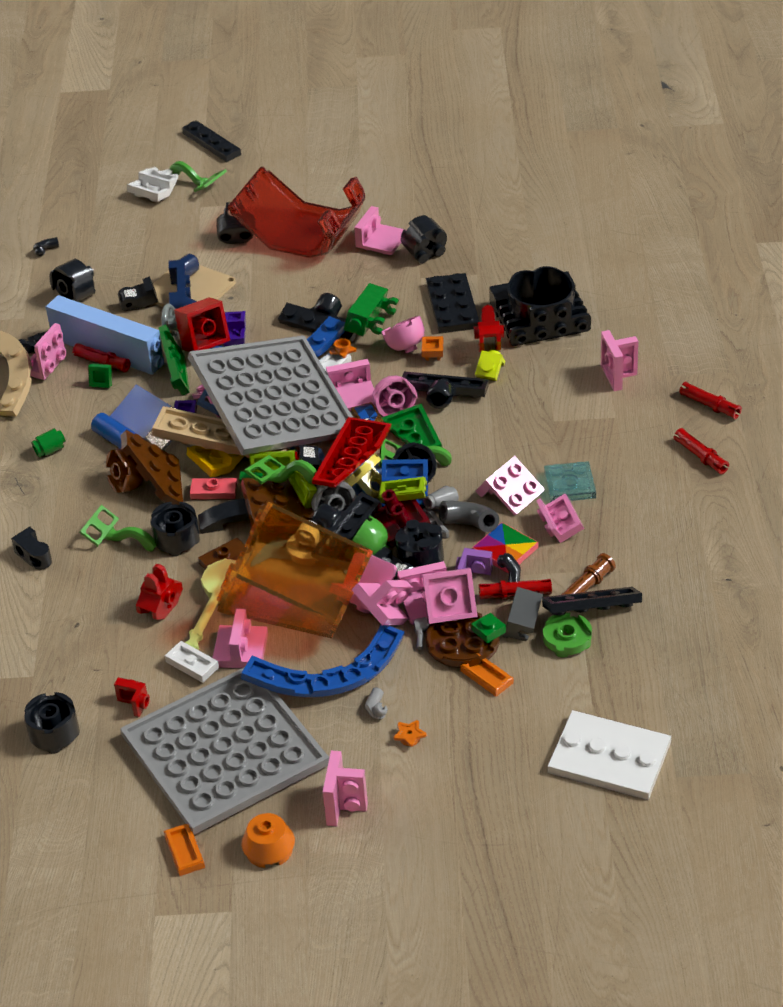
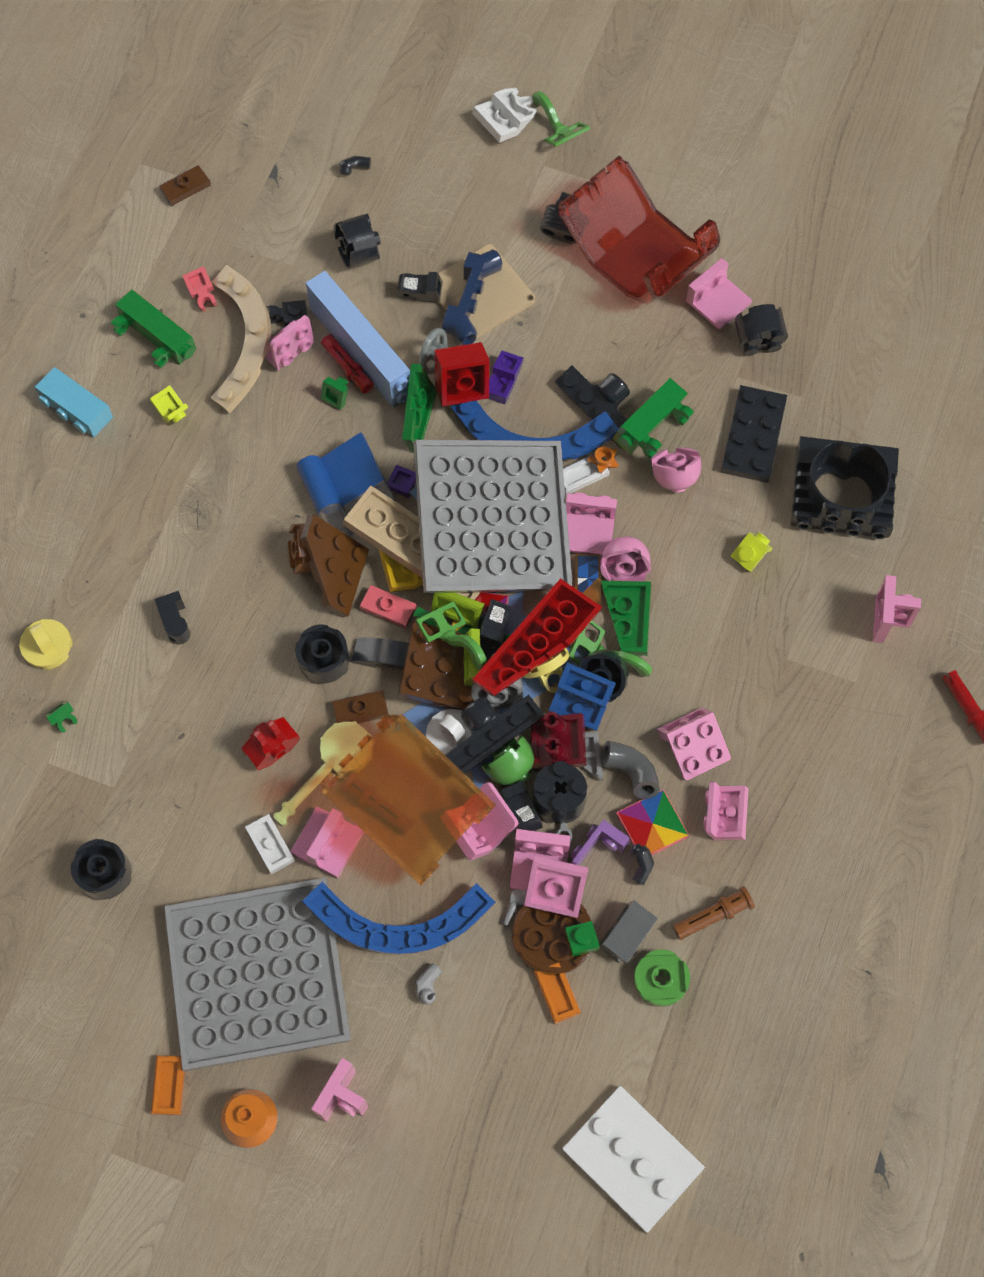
camera: 20 degrees right, 25 degrees up
(48, 442) = (245, 470): green brick -> none
(109, 533) = (258, 625): bright green piece -> none
(133, 693) = (195, 858): red bracket -> none
(211, 141) = (597, 65): black plate -> none
(383, 600) = (484, 862): bright pink bracket -> none
(405, 488) = (593, 717): lime tile -> none
(409, 739) = (444, 1046): orange plate -> none
(432, 347) = (699, 500): orange tile -> none
(443, 387) = (687, 563): black plate -> none
(443, 494) = (616, 730): light grey cone -> none
(488, 328) = (769, 504): red hinge -> none
(508, 589) = (636, 891): red pin -> none
(570, 478) = (762, 759): clear light blue plate -> none
(594, 599) = (706, 949): black plate -> none
(706, 455) = (924, 779): red pin -> none

